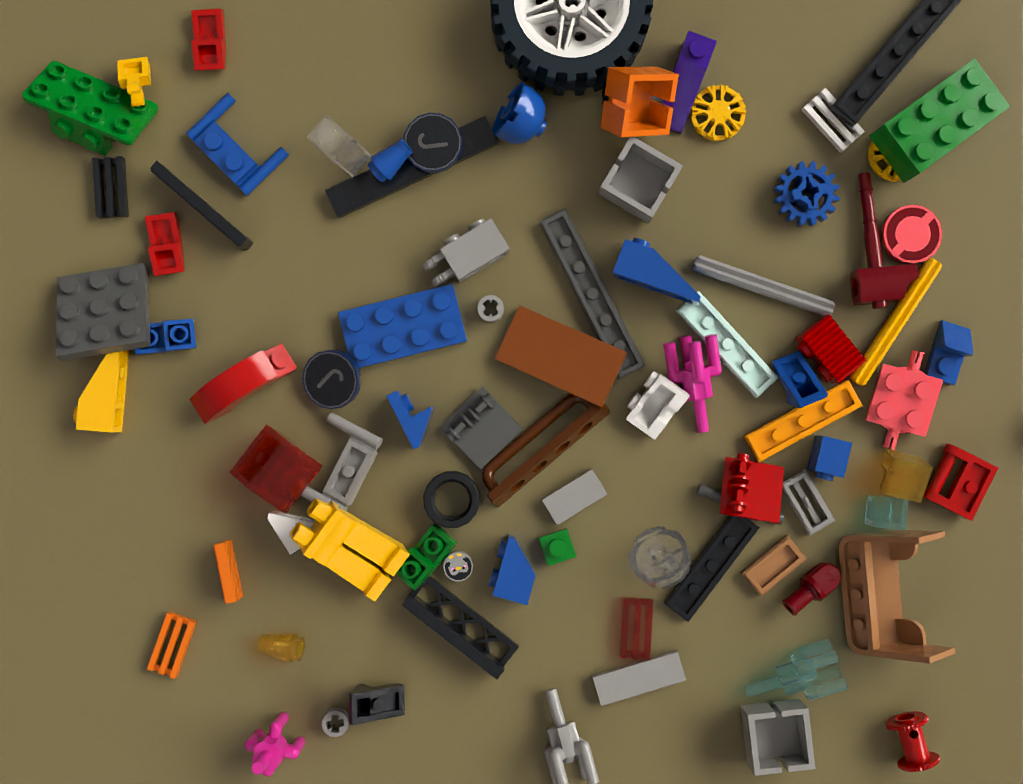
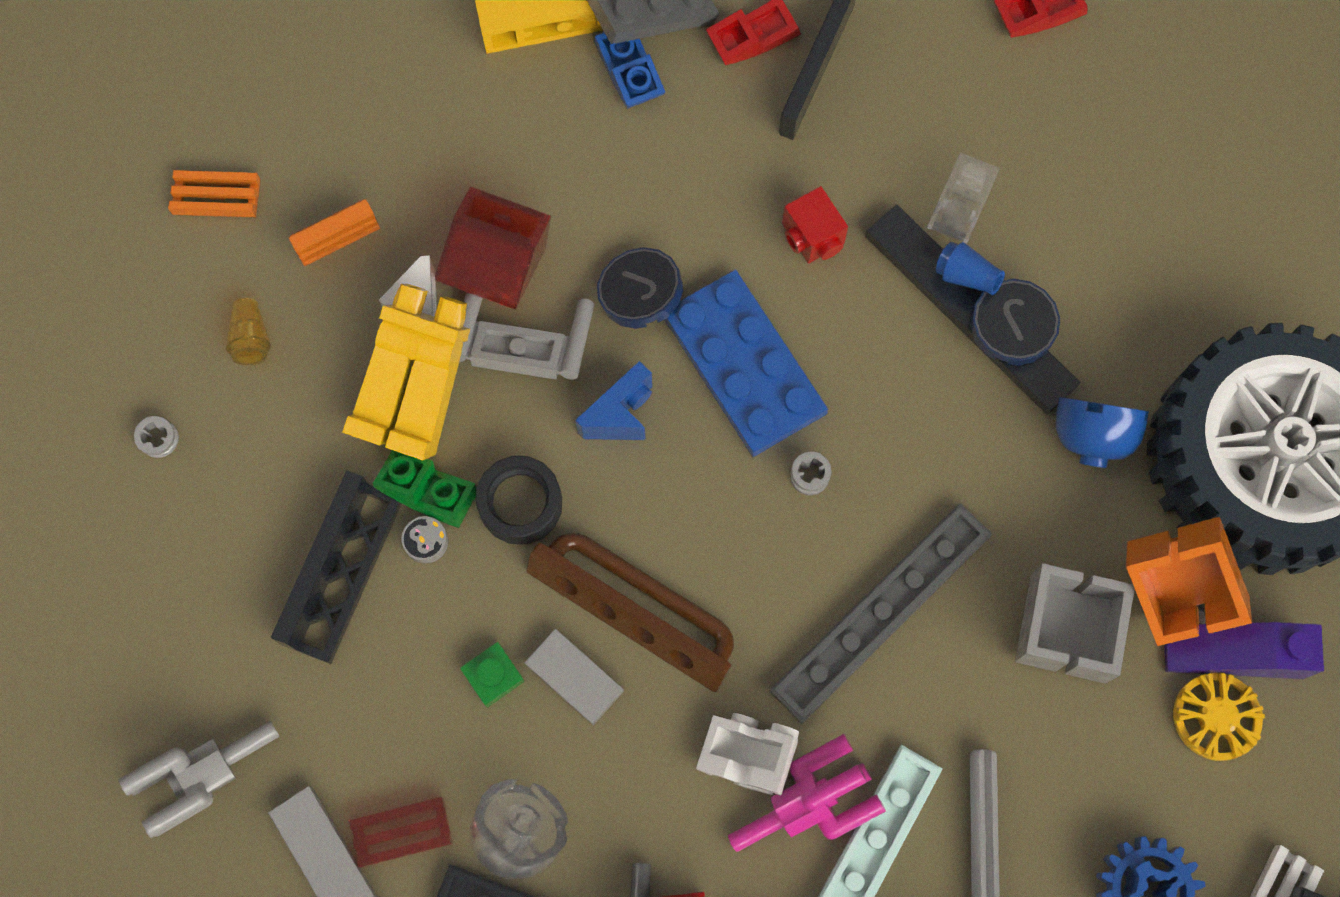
camera: 75 degrees right, 15 degrees down
(228, 153) = (900, 72): blue plate -> none
(241, 381) = (599, 165): red arch -> none
(272, 747) = (97, 351): dark pink plant -> none
(324, 250) = (814, 226): none -> red brick
(375, 703) = (195, 478): black slope -> none
(469, 252) = (879, 417): light grey hinge -> none
(481, 428) = (634, 512): dark grey hinge -> none
(515, 575) = (436, 621): blue slope -> none
(561, 356) = (775, 591): dark orange tile -> none
(647, 269) = (947, 671): blue slope -> none

